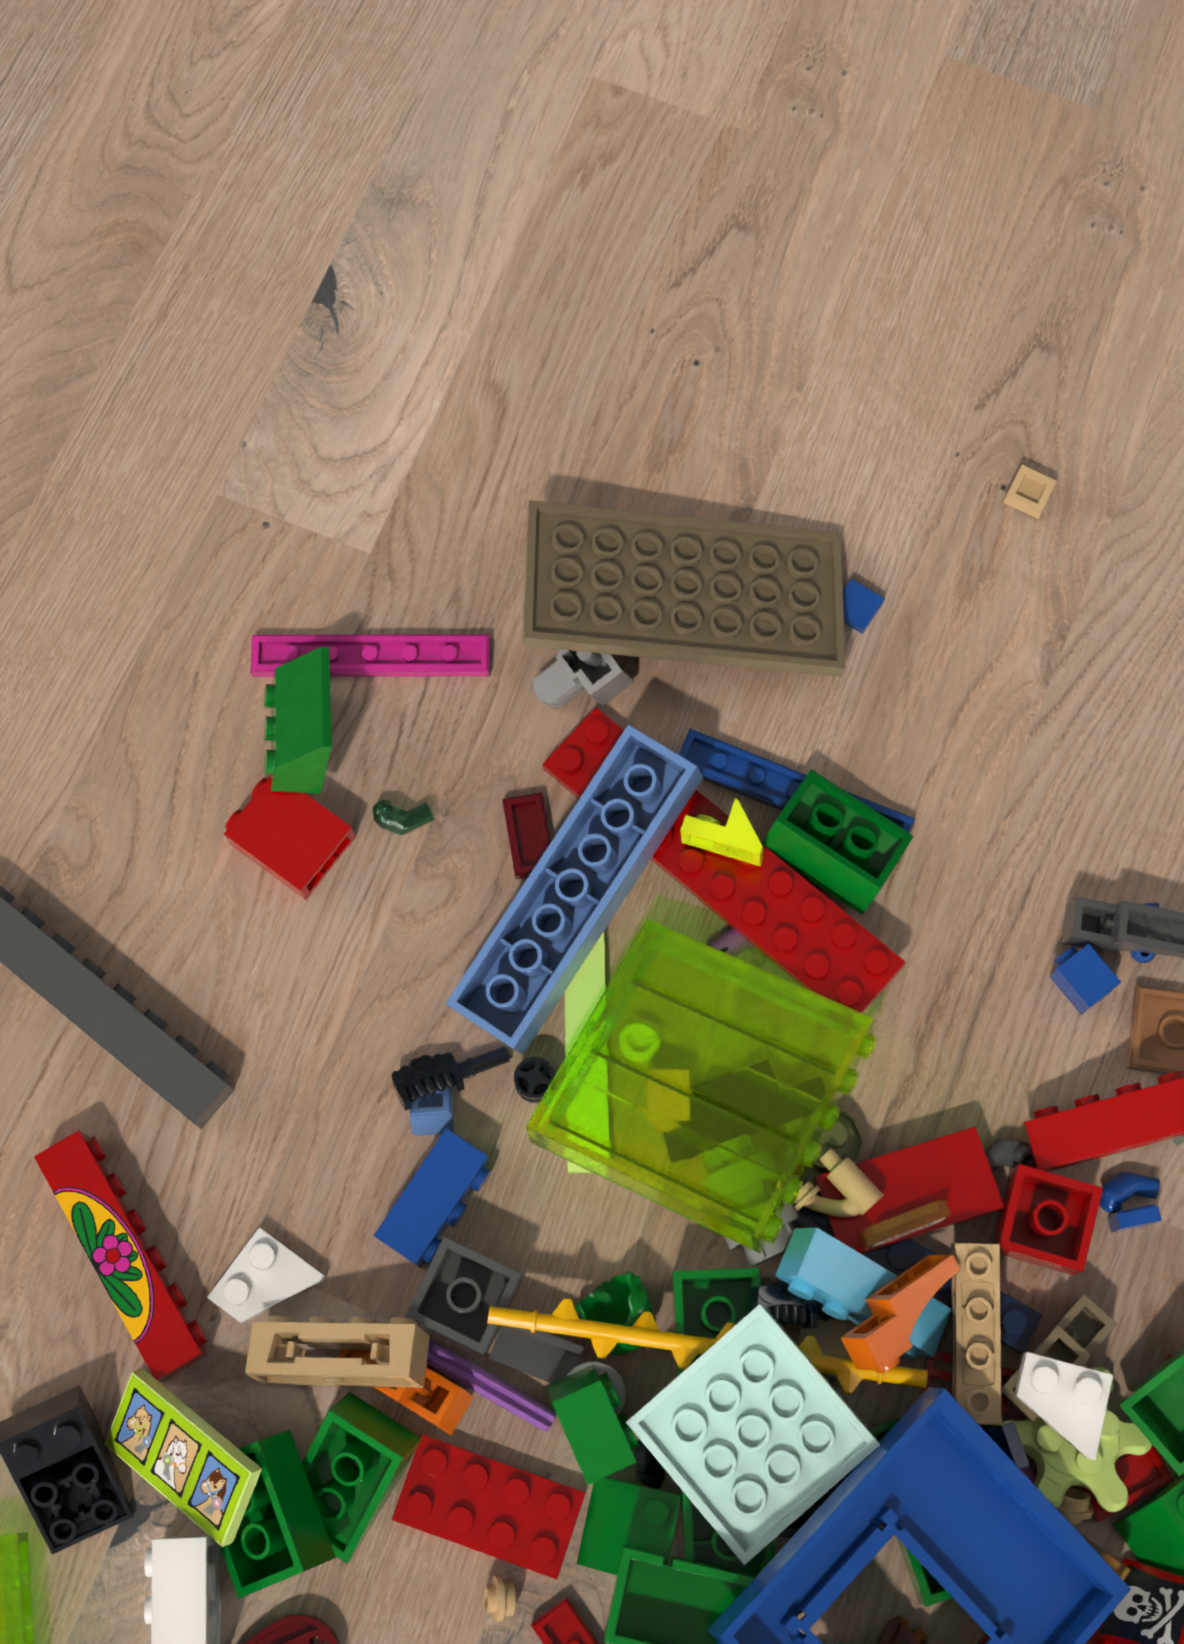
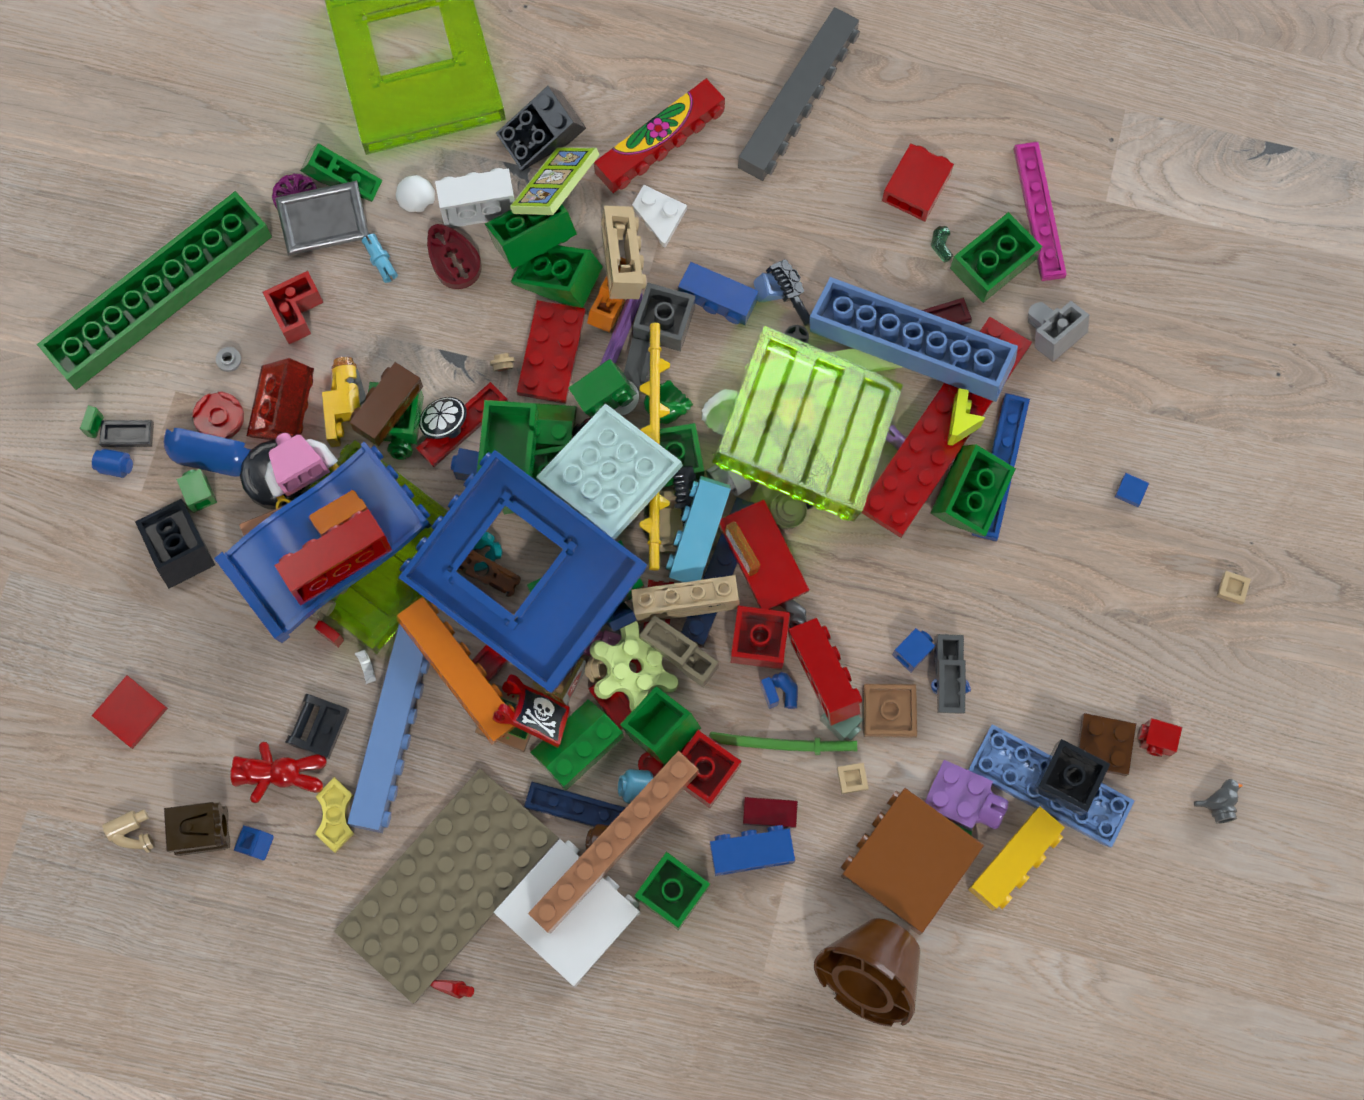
camera: 80 degrees right, 0 degrees up
(299, 723) = (984, 170): green slope -> none
(448, 735) = (995, 257): none -> green brick
(646, 1224) = (717, 410): none -> hair
(683, 589) = (1117, 376): dark tan plate -> none
(853, 1184) = (763, 516): tan plant -> none
(895, 1310) = (671, 535): orange slope -> none
(1066, 1398) = (654, 651): white wing -> none

